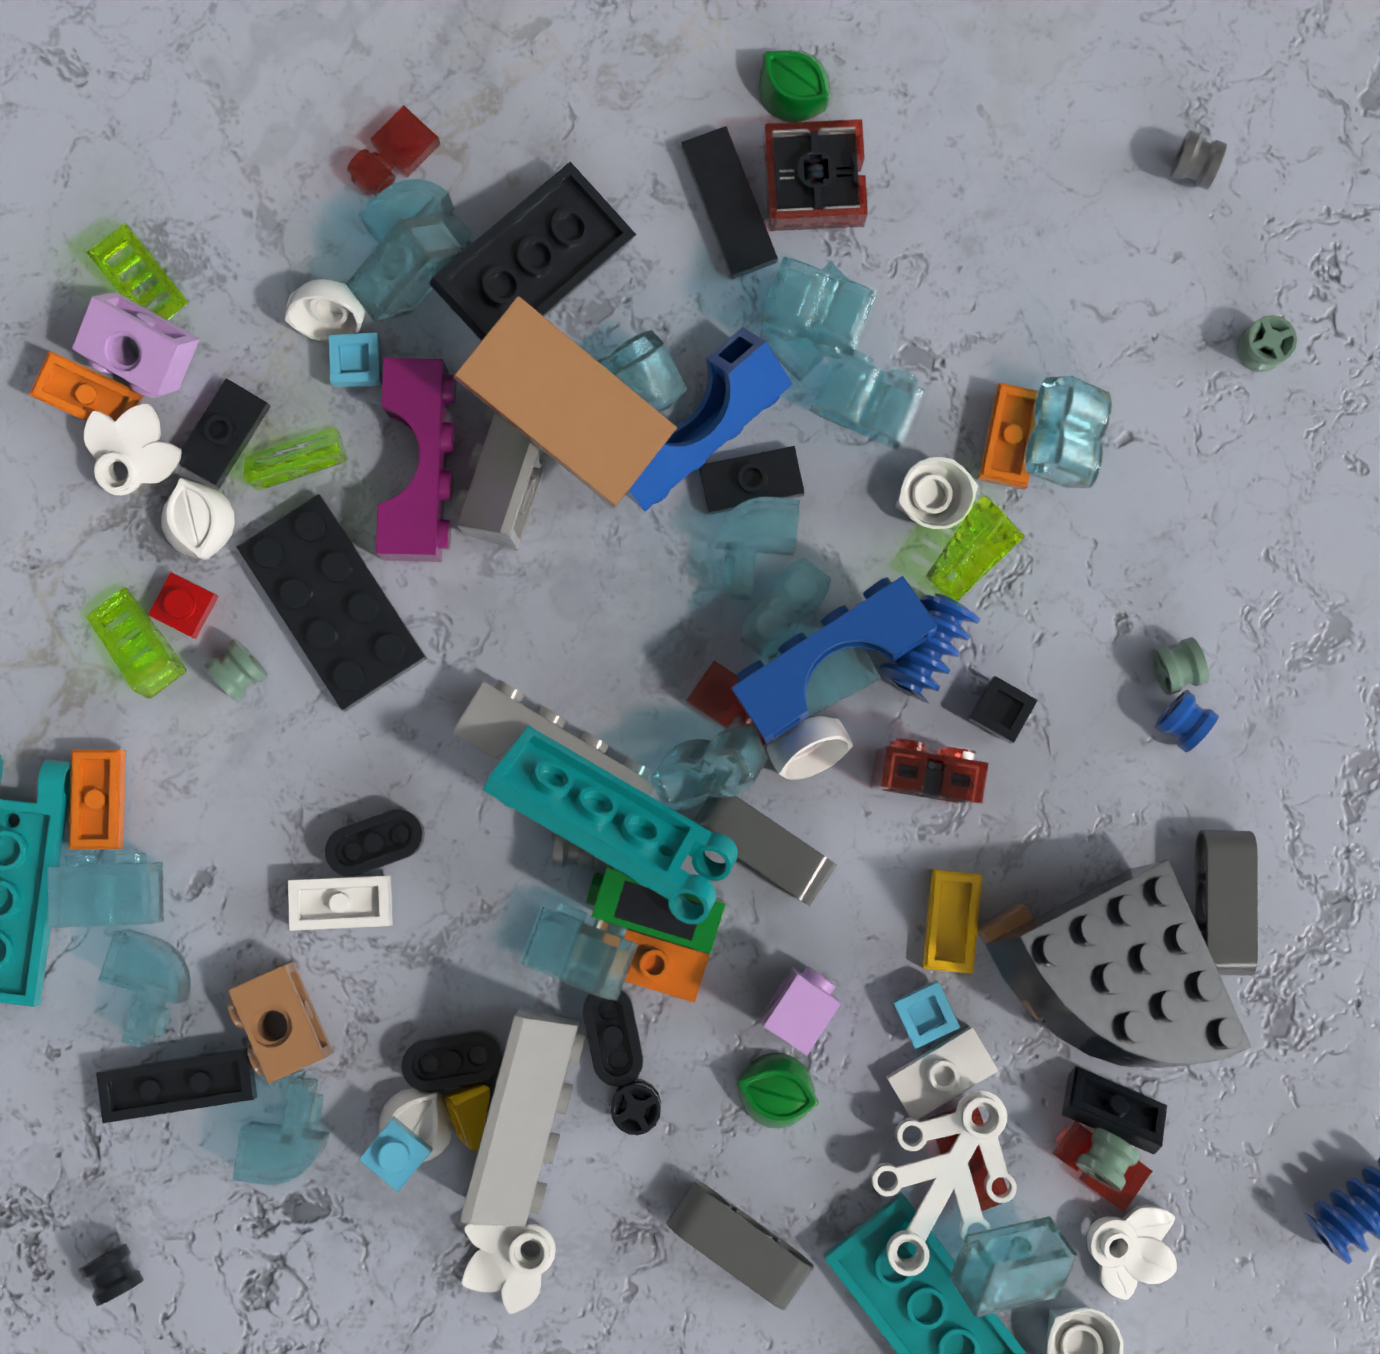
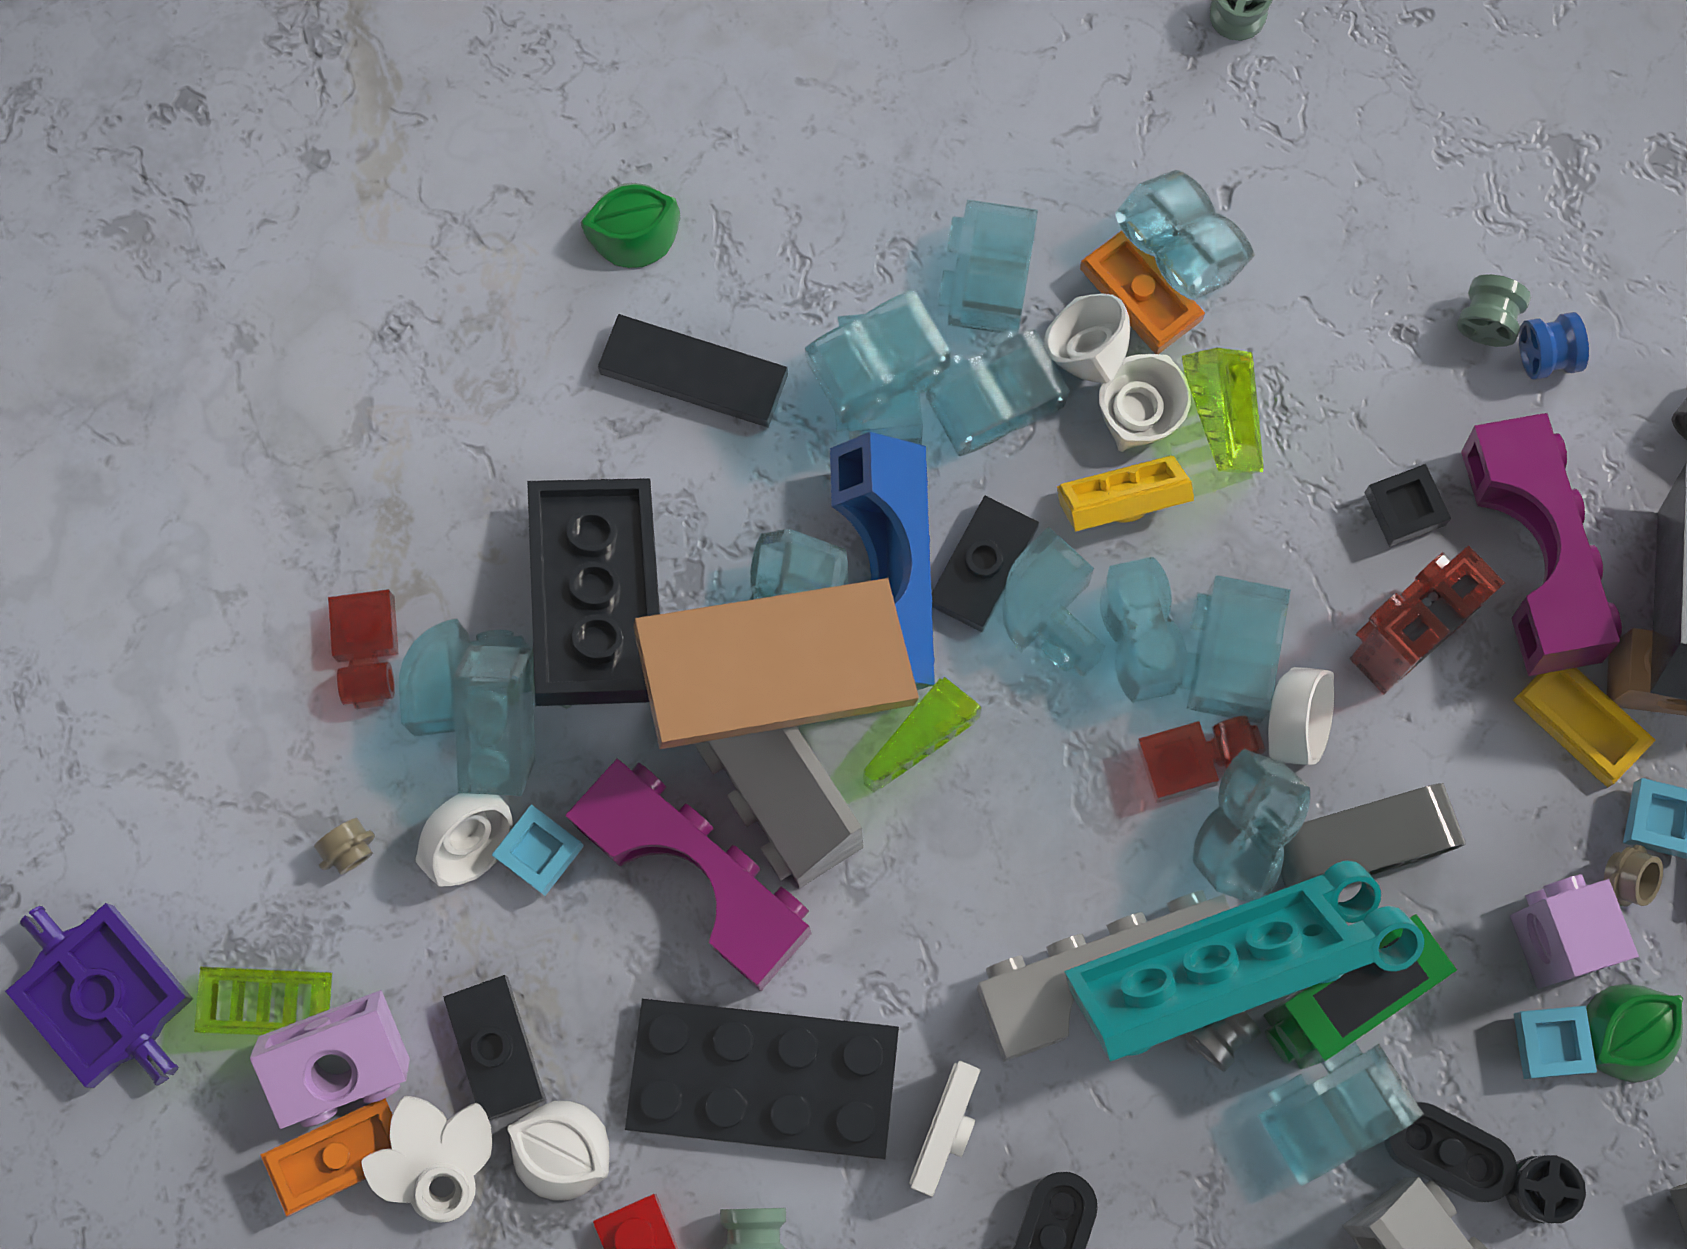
camera: 40 degrees left, 10 degrees down
(65, 179) = (99, 995): none -> dark purple plate
(265, 246) = (345, 846): none -> dark tan plate
(295, 459) = (584, 994): clear neon green slope -> none
(387, 732) = (948, 1130): none -> white plate
(614, 528) = (932, 724): none -> clear neon green slope
(666, 966) = (1421, 1036): orange plate -> none
(730, 1049) = (1554, 1042): none -> medium azure plate
(815, 175) = (738, 269): piece -> none
(865, 530) = (1125, 493): none -> yellow plate
(872, 1022) = (1634, 875): none -> dark tan plate
(886, 622) = (1234, 692): blue arch -> none
(916, 666) = (1288, 523): blue piece -> none
(948, 329) = (990, 266): none -> clear light blue brick
(948, 428) = (1090, 337): none -> white hat
(1079, 763) = (1522, 472): none -> magenta arch

